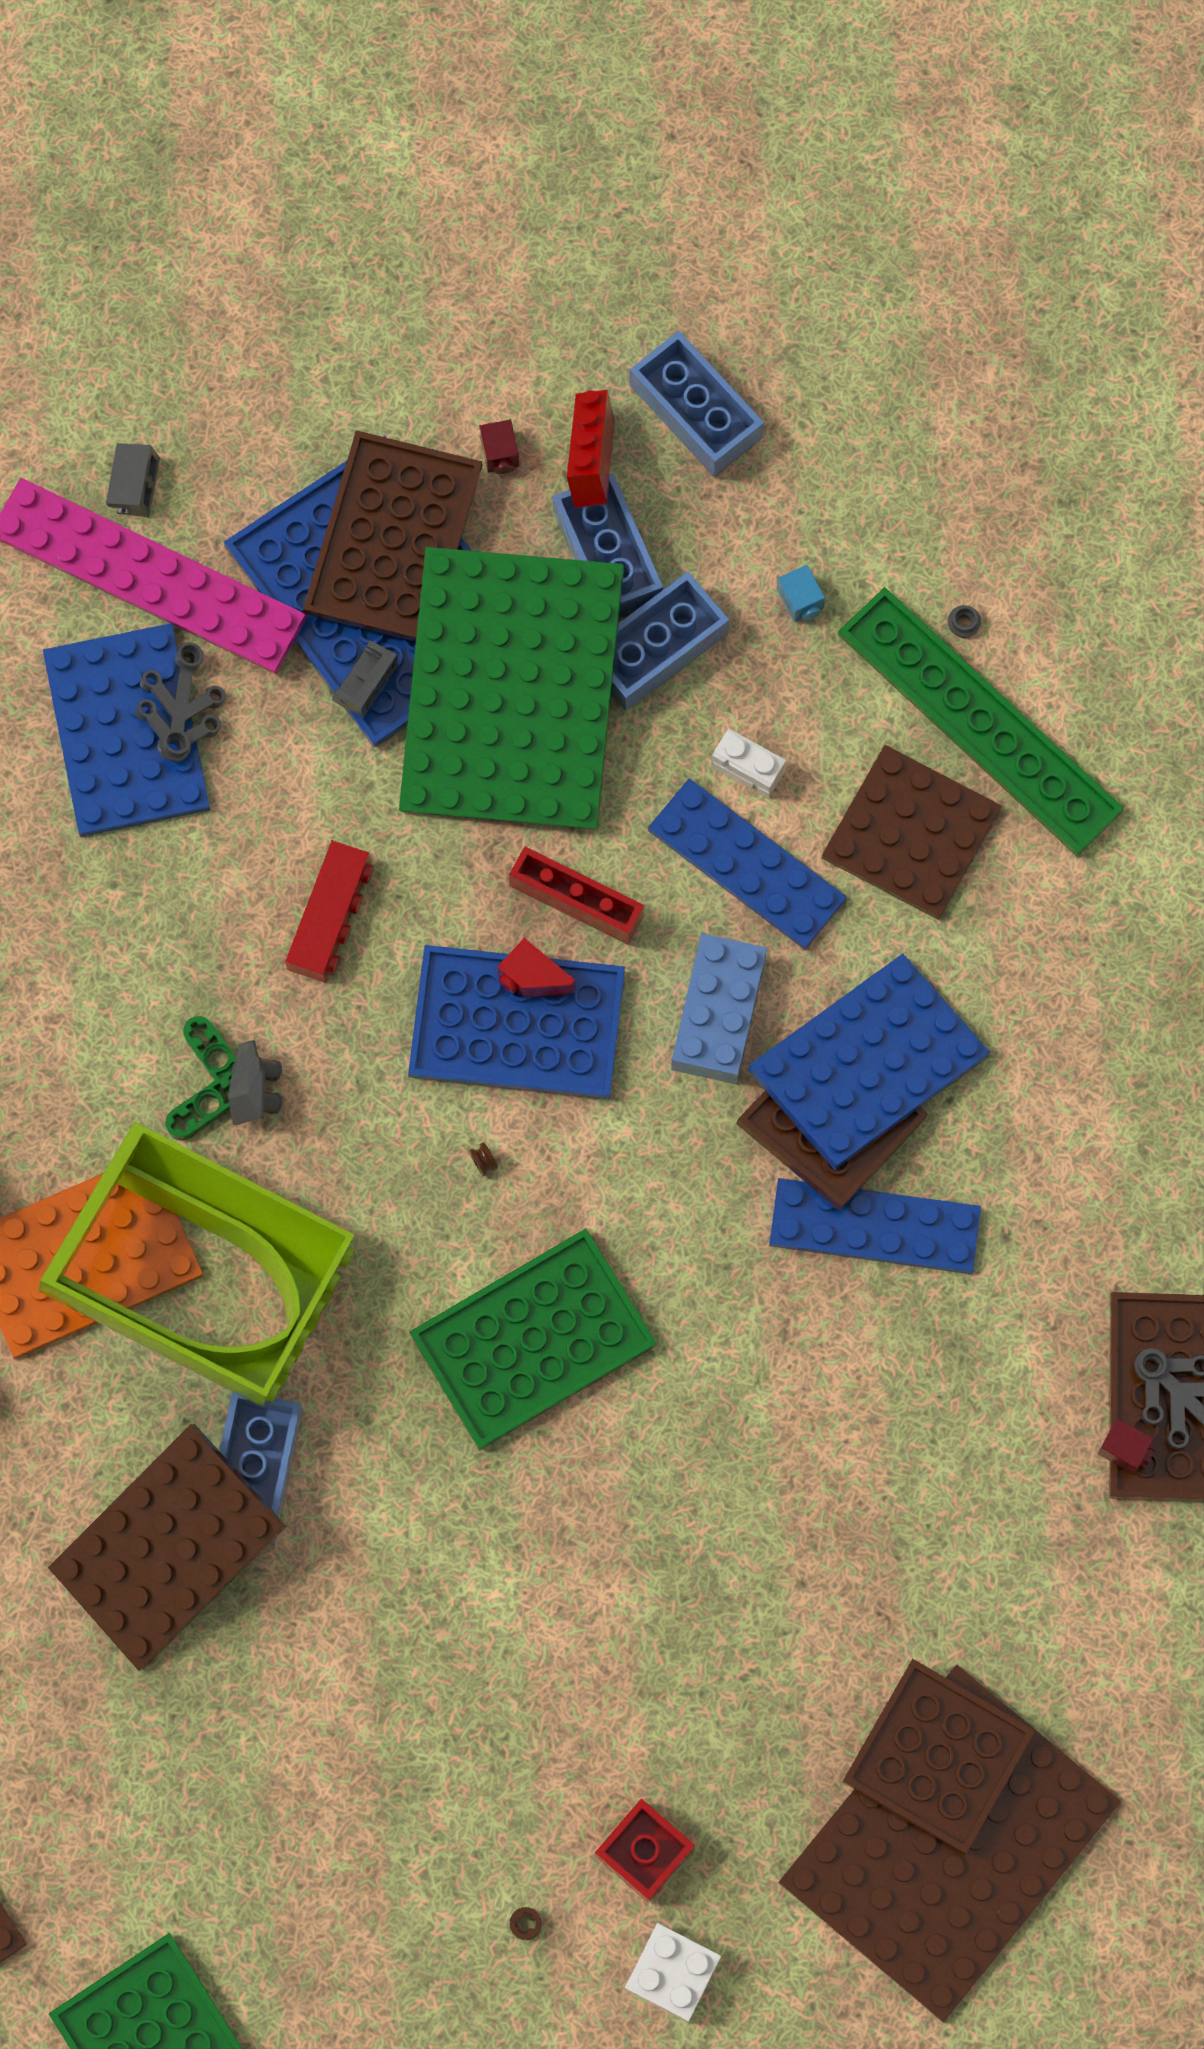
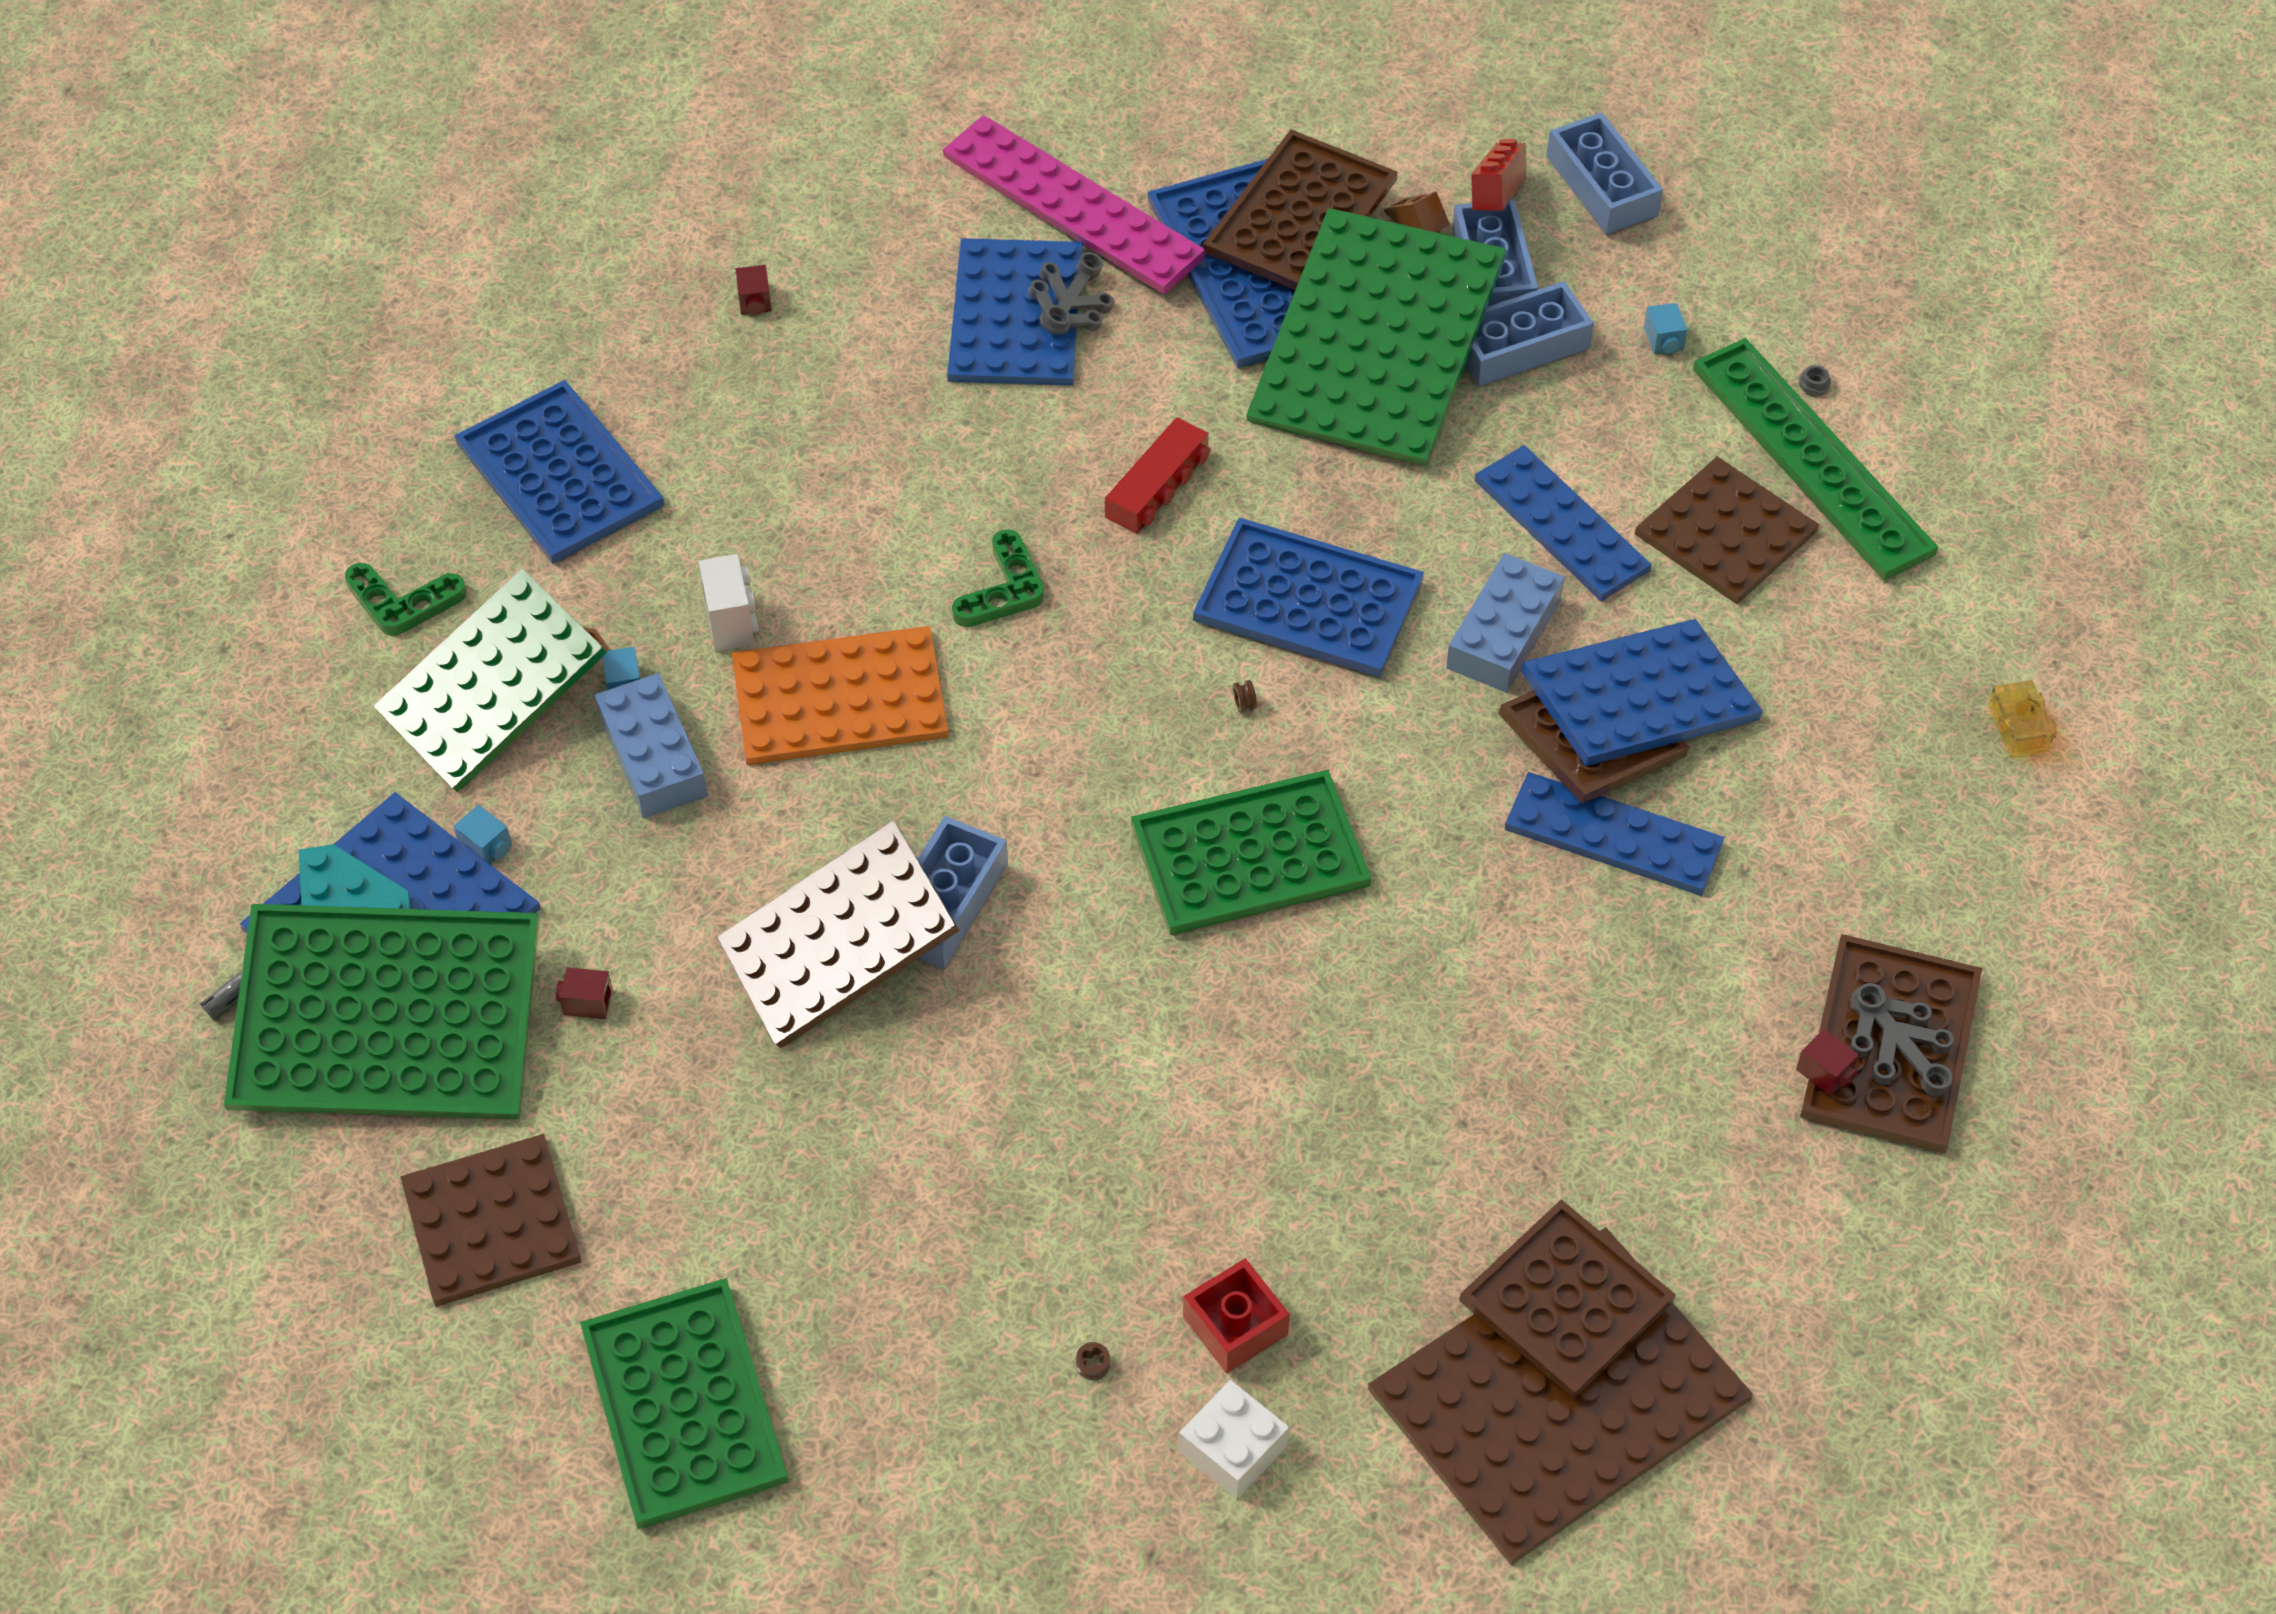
camera: 15 degrees right, 20 degrees down
(133, 479) = (1082, 135): dark grey hinge -> none
(247, 1087) = (1038, 585): dark grey connector -> none
(285, 1239) = (1029, 704): lime panel -> none
(366, 679) = (1247, 309): dark grey hinge -> none
(499, 446) = (1416, 171): dark red brick -> none
(514, 504) = (1420, 212): none -> dark orange slope
(533, 973) = (1336, 552): red slope -> none
(576, 895) = (1393, 506): red brick -> none
(748, 763) = (1583, 442): white brick -> none

